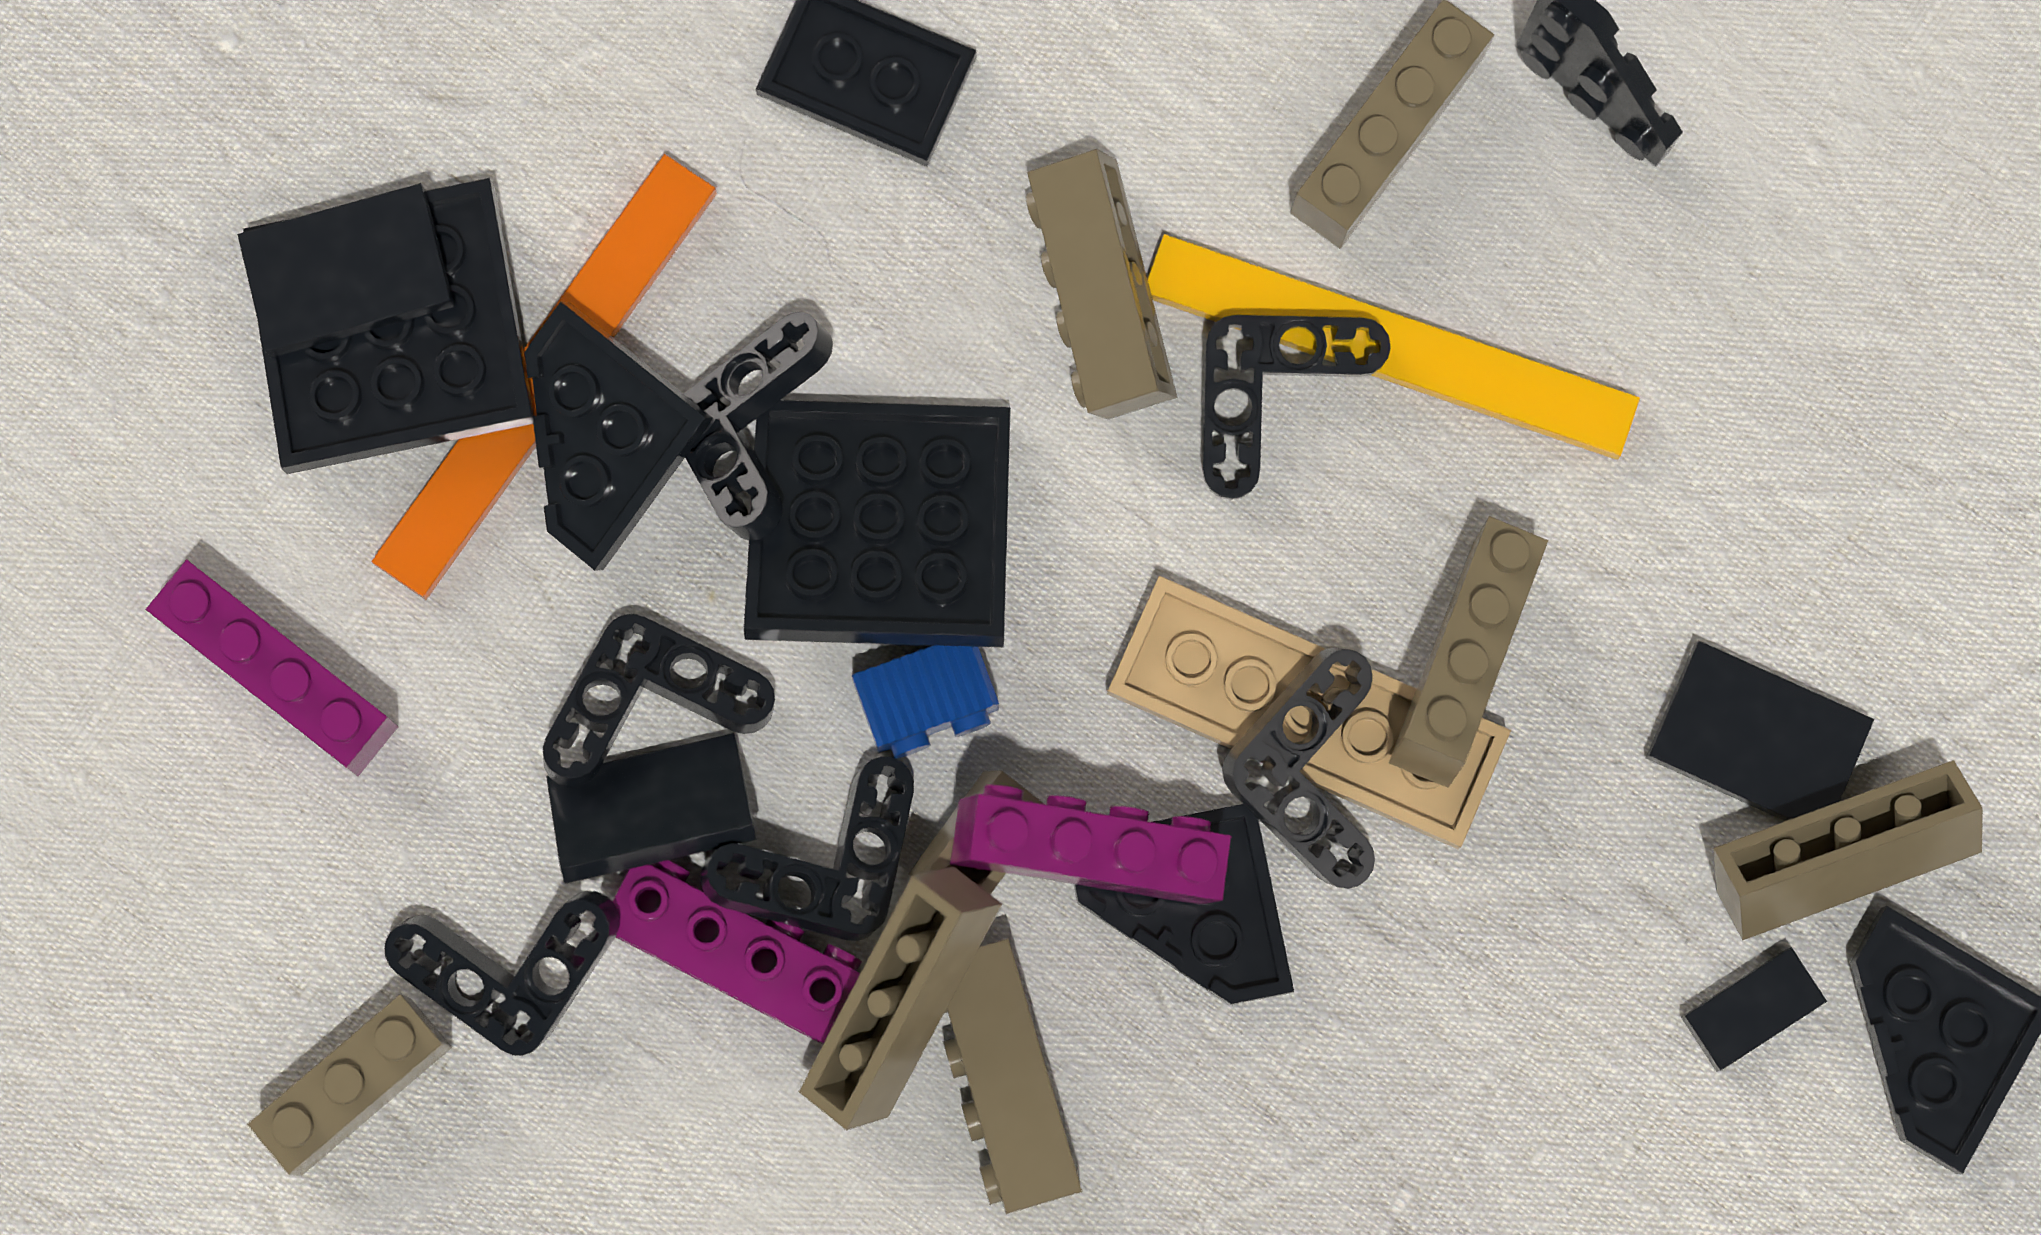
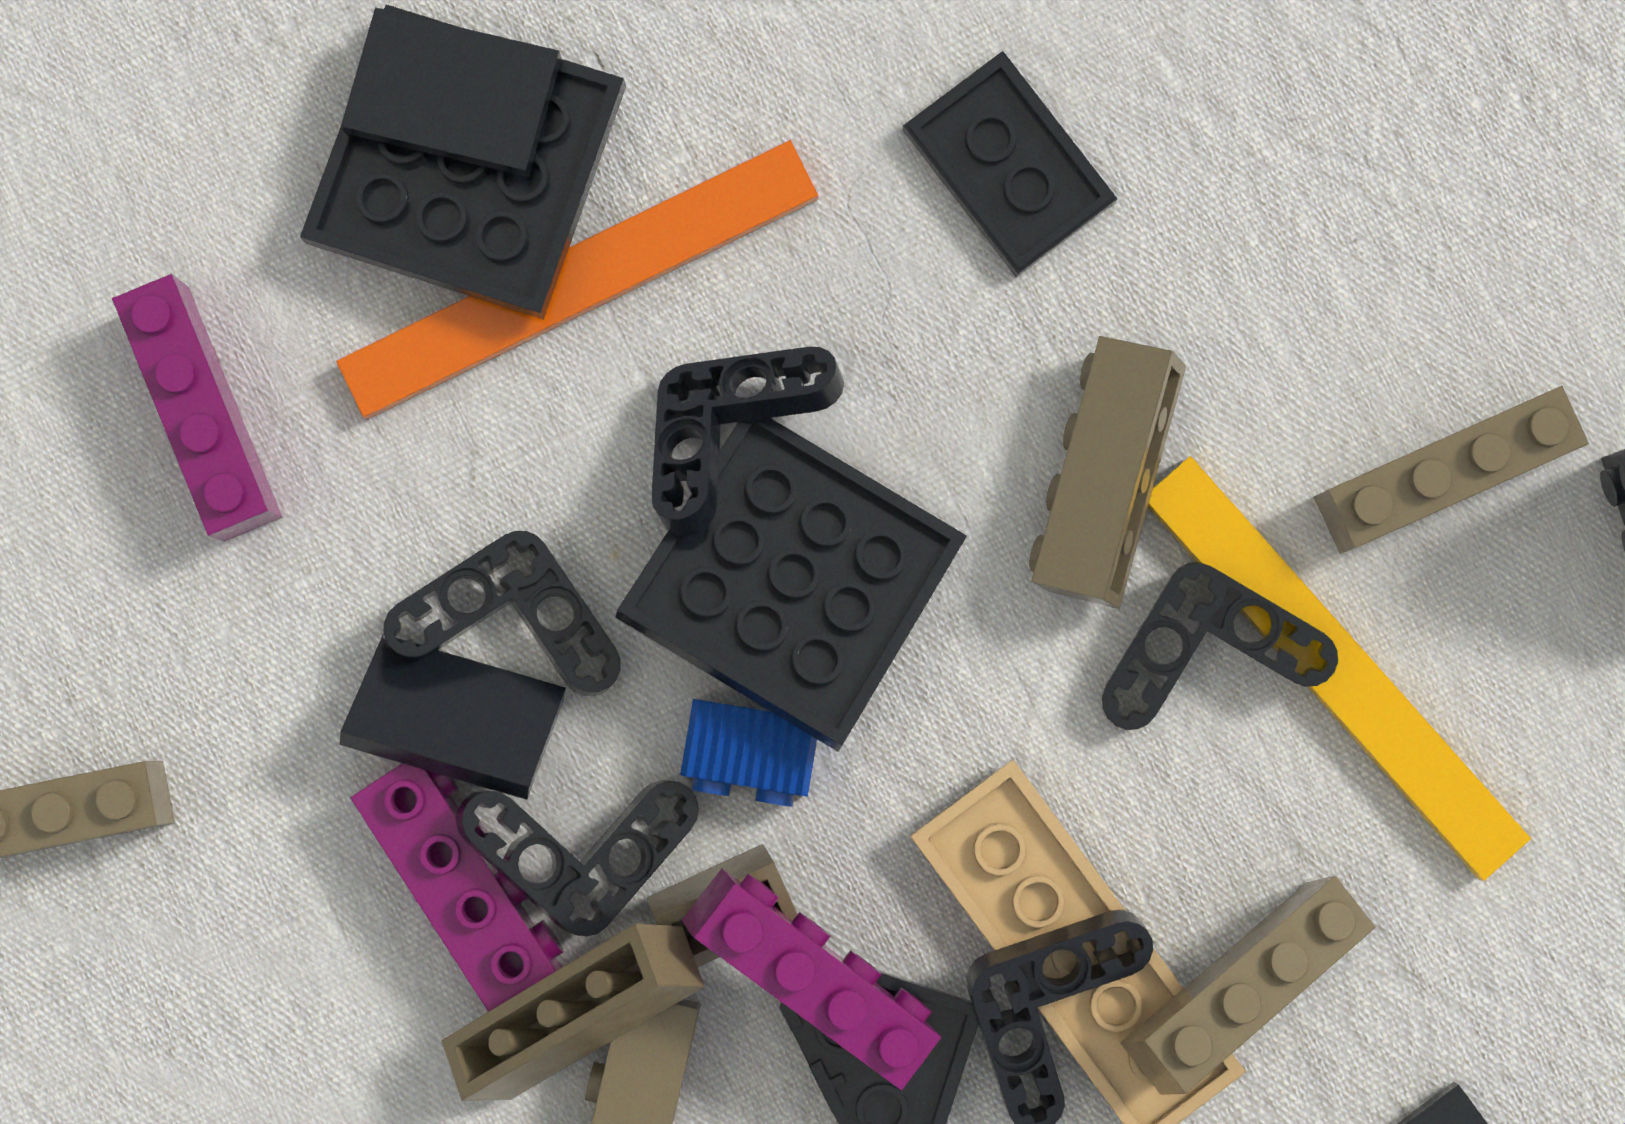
camera: 30 degrees right, 5 degrees up
(523, 991) = (254, 813): black beam -> none
(602, 433) = (596, 361): black plate -> none

